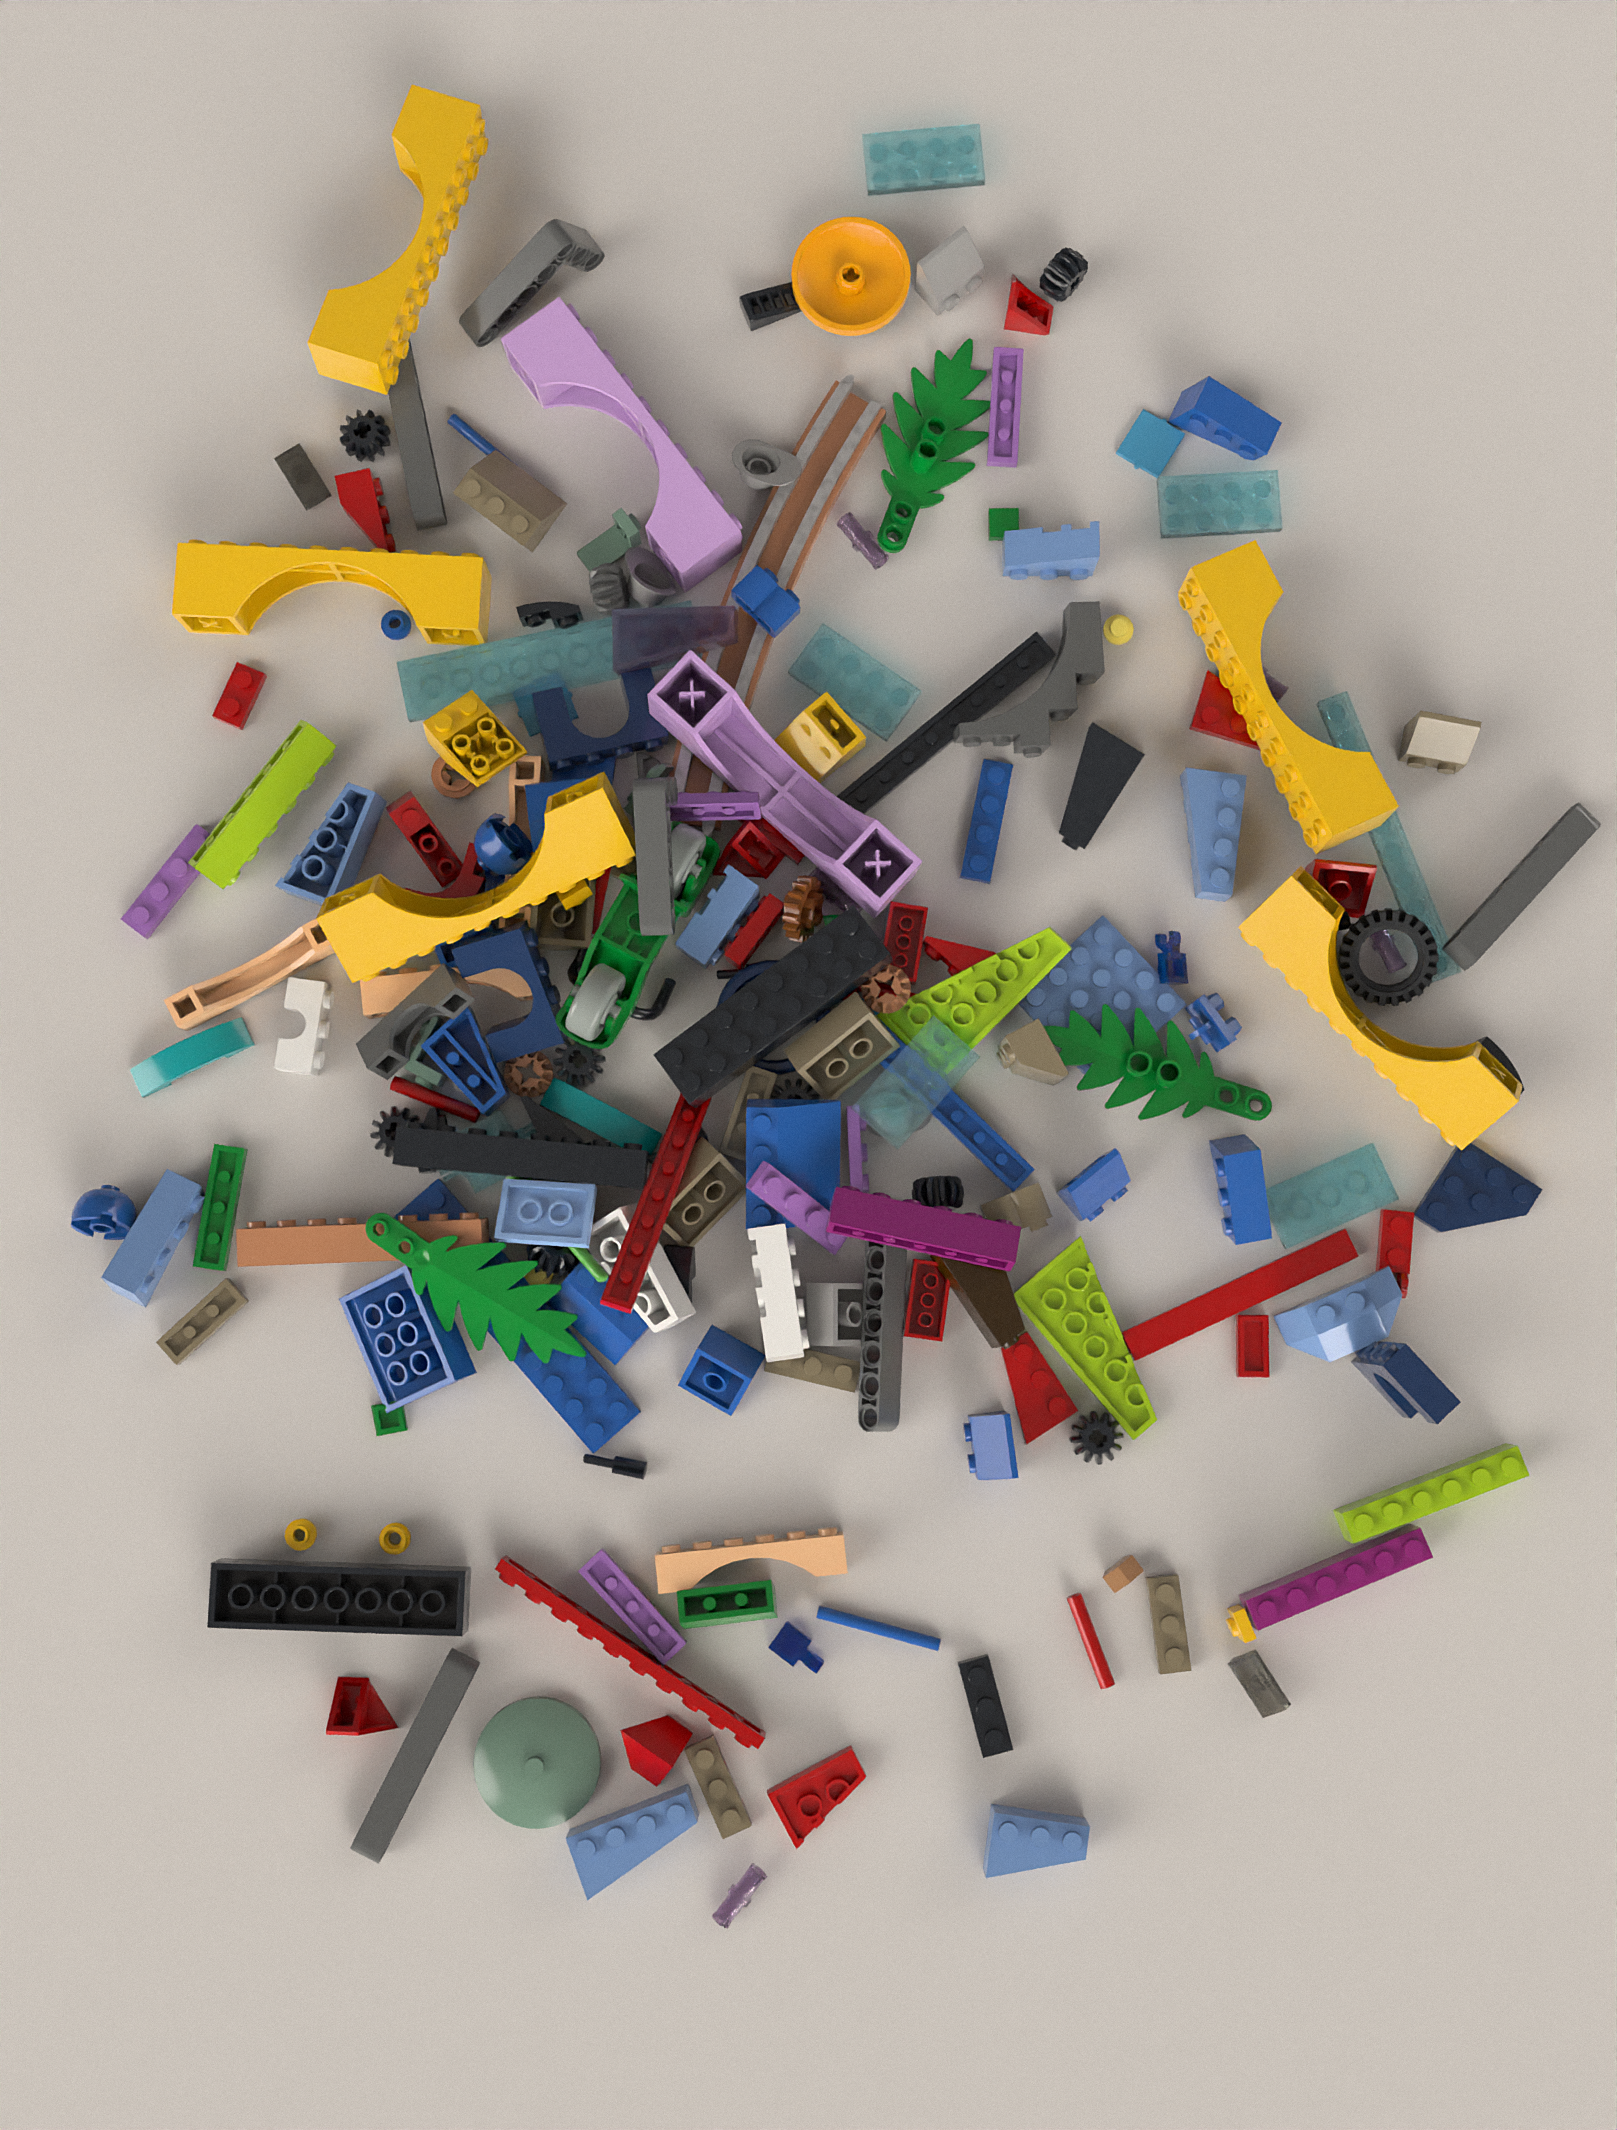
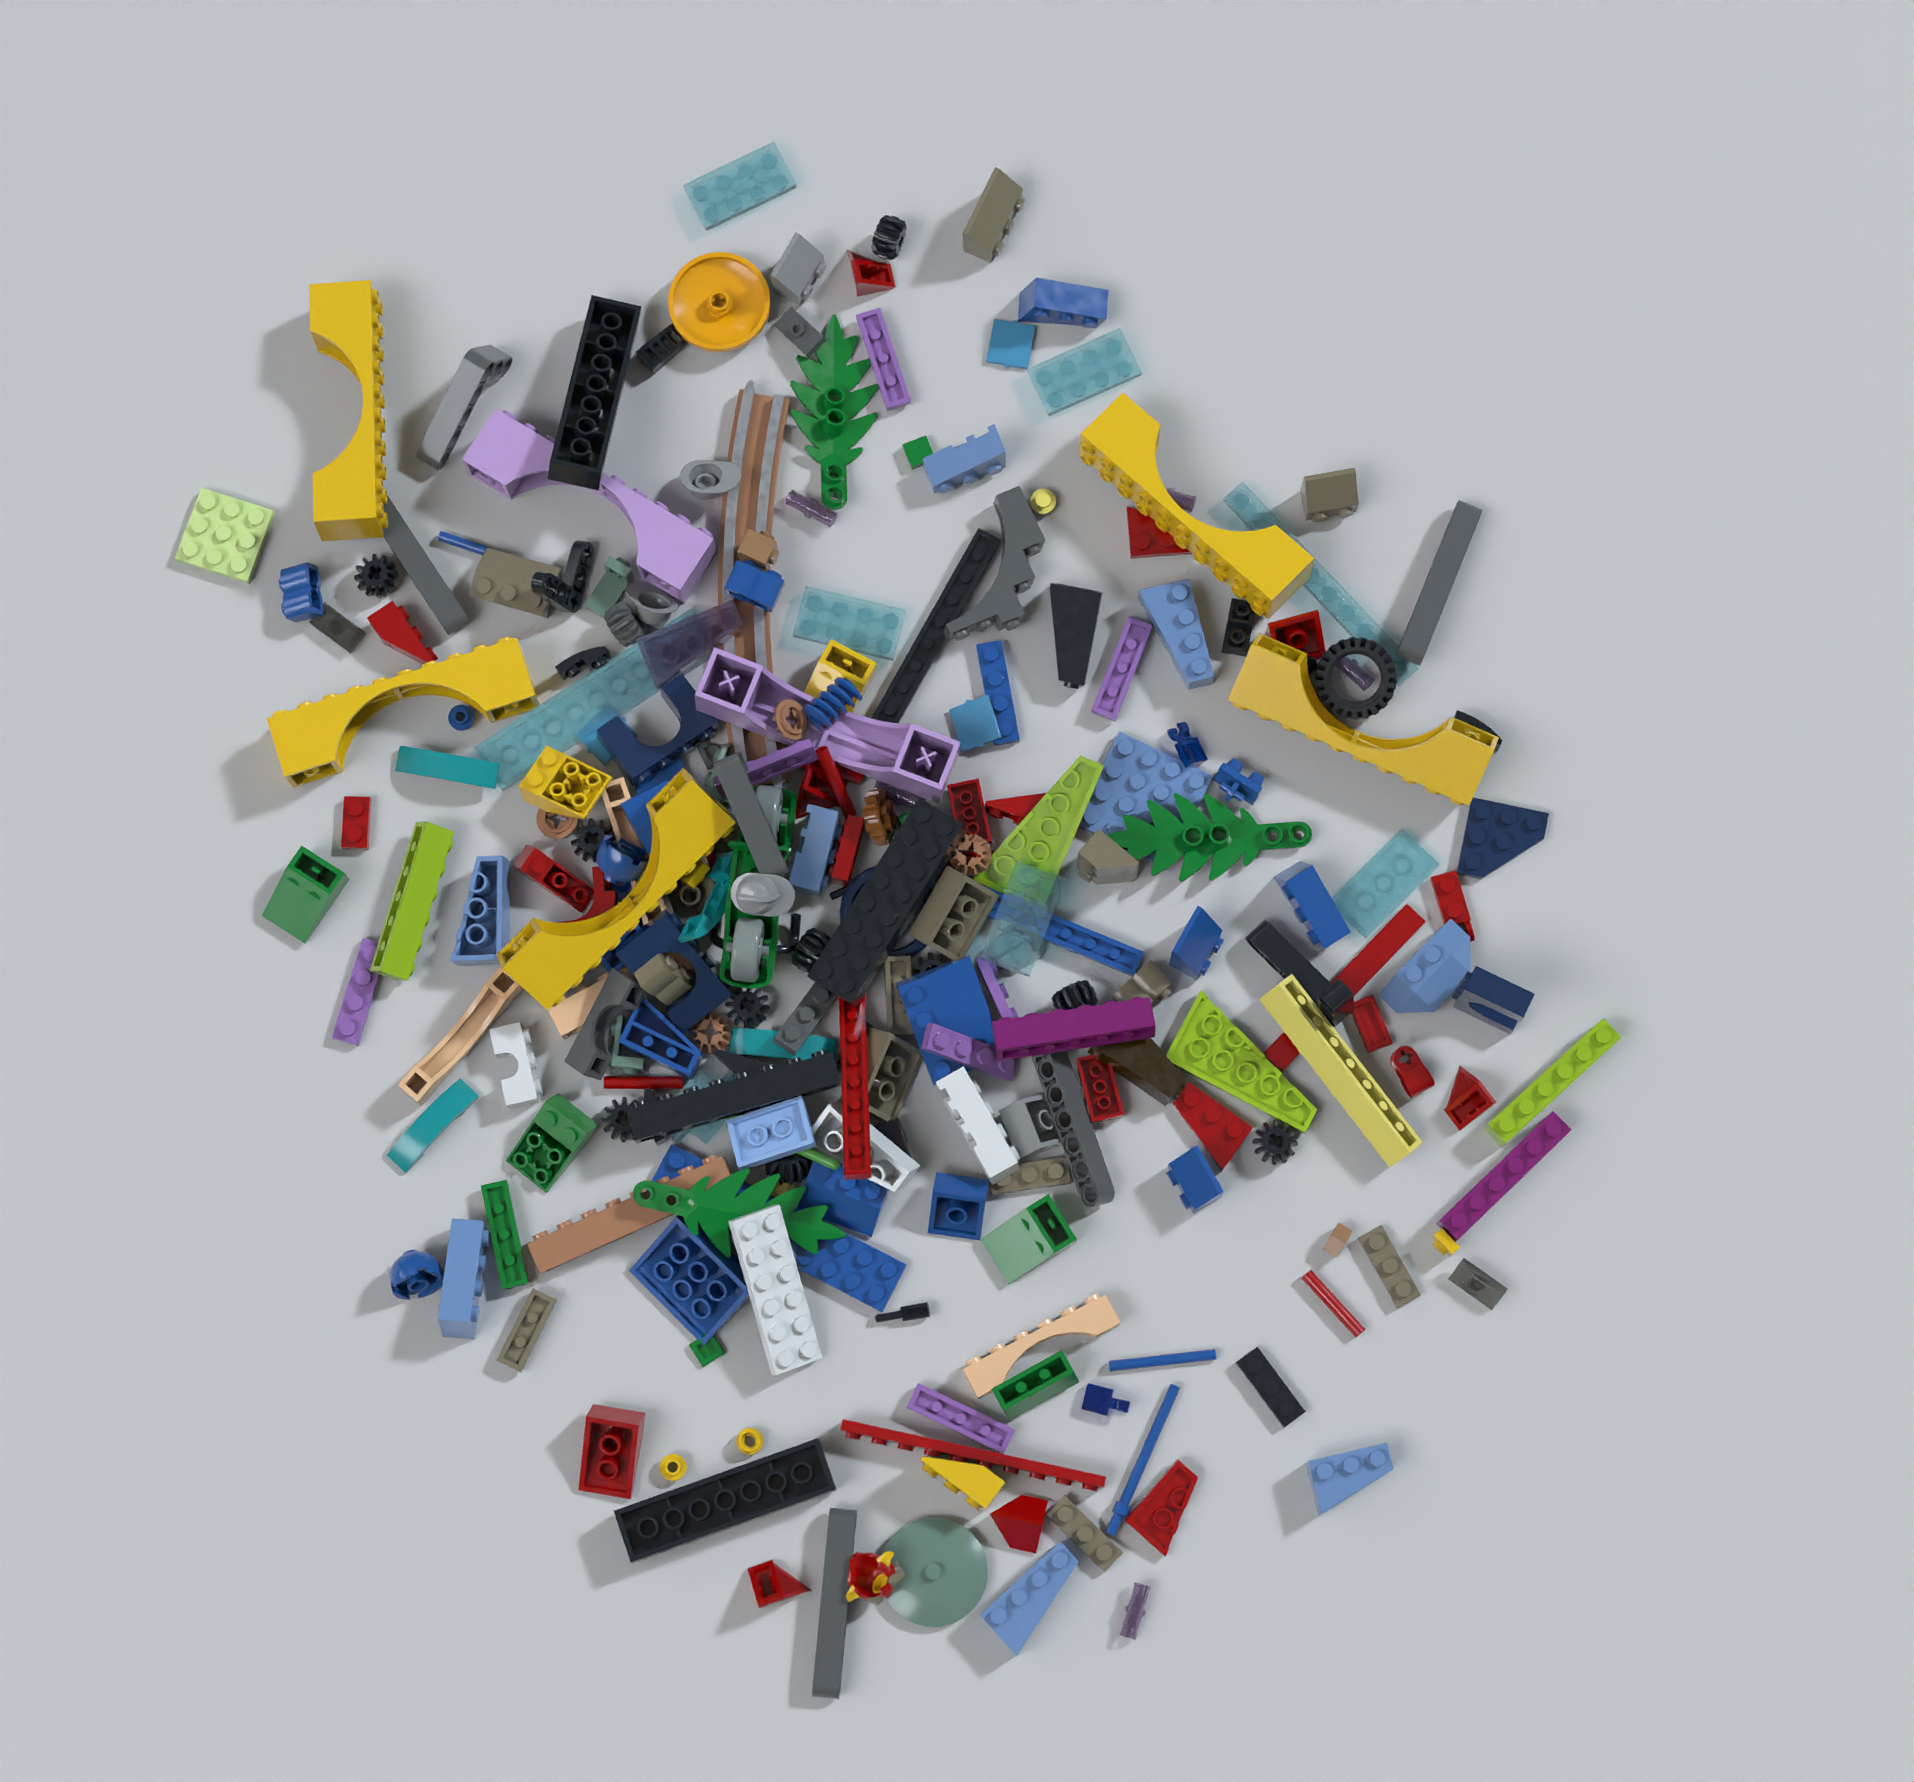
camera: 20 degrees left, 5 degrees down
(152, 751) = (304, 894): none -> green slope
(223, 331) = (225, 535): none -> yellowish green plate
(240, 1489) = (611, 1451): none -> red slope
(277, 422) = (301, 592): none -> blue brick
(311, 1125) = (551, 1142): none -> green slope
(359, 673) = (447, 767): none -> teal slope
(465, 1748) = (873, 1576): none -> red hair
(483, 1387) = (775, 1289): none -> white plate
(492, 804) = (583, 836): none -> black gear
(495, 997) = (664, 979): none -> dark tan brick
(558, 537) = (569, 590): none -> black beam
(577, 943) = (715, 905): none -> teal slope
(615, 1684) = (972, 1480): none -> yellow slope
(633, 1100) = (804, 1019): none -> dark grey plate
(634, 947) = (762, 894): none -> light grey piece
(669, 1024) = (809, 949): none -> black gear
(673, 321) = (594, 393): none -> black brick
(754, 757) = (794, 712): none -> nougat gear
(769, 1774) = (1122, 1507): none -> blue bar
(770, 850) = (835, 781): none -> red piece
(784, 1439) = (1029, 1239): none -> slope
(787, 562) = (759, 548): none -> medium nougat brick
(798, 762) = (832, 702): none -> blue piece
(926, 343) = (800, 332): none -> dark grey plate
(948, 845) = (975, 723): none -> dark azure piece
(1132, 847) = (1121, 669): none -> medium lavender plate
(1186, 294) = (993, 216): none -> dark tan slope
(1201, 1389) = (1340, 1070): none -> light yellow brick
(1216, 1303) = (1333, 999): none -> black beam
(1277, 1421) = (1413, 1075): none -> red piece
(1278, 851) = (1238, 628): none -> black slope
(1328, 1473) = (1467, 1099): none -> red slope

